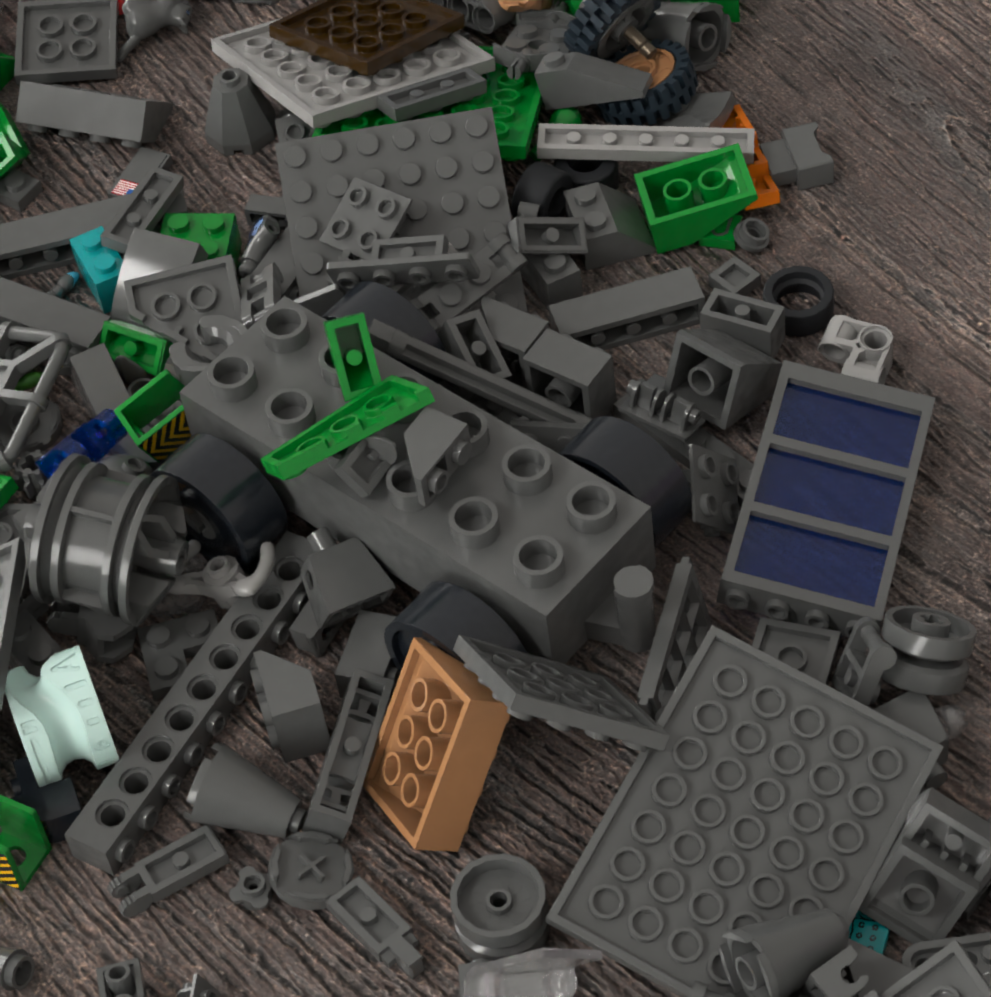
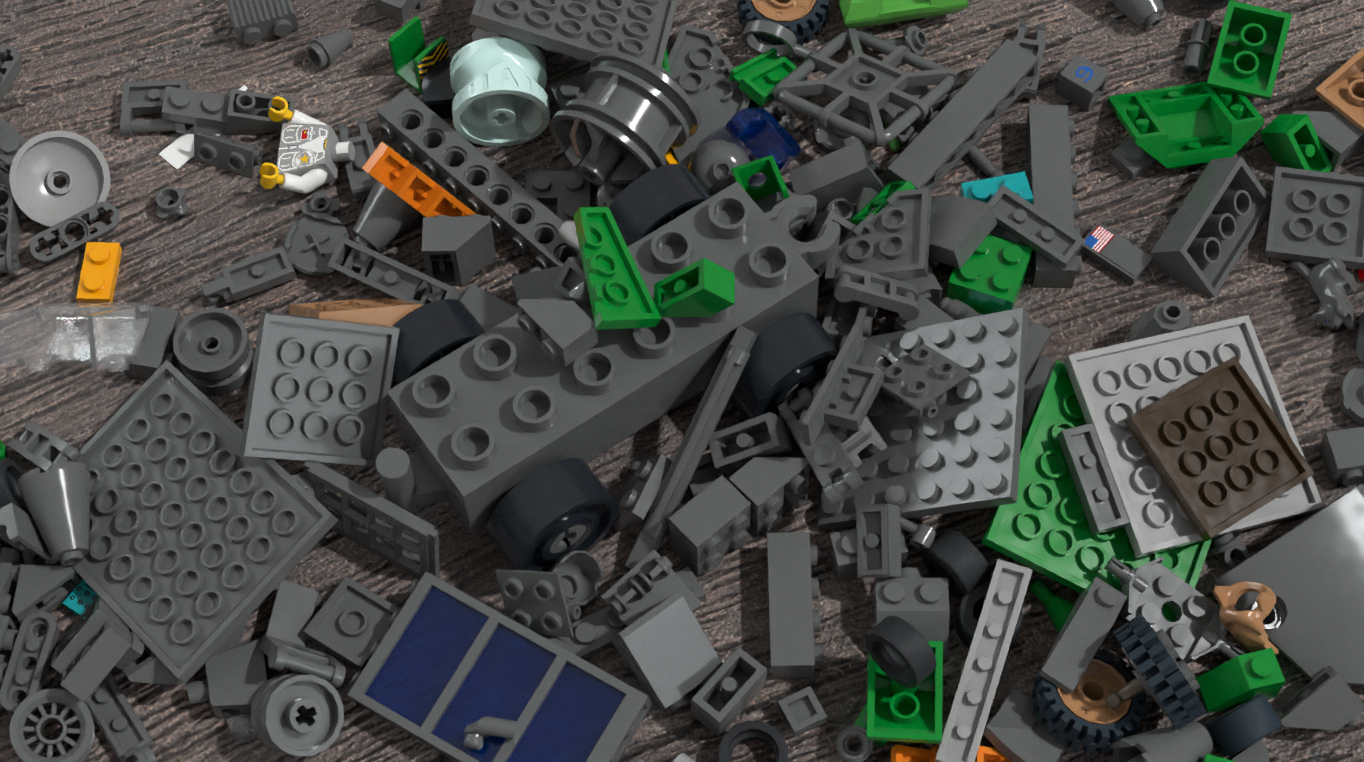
camera: 100 degrees right, 10 degrees up
(181, 918) = (306, 153): none -> torso
(234, 734) = (412, 184): none -> orange slope
(669, 172) = (901, 651): none -> black tyre
(871, 478) = (487, 727): none -> dark grey arm

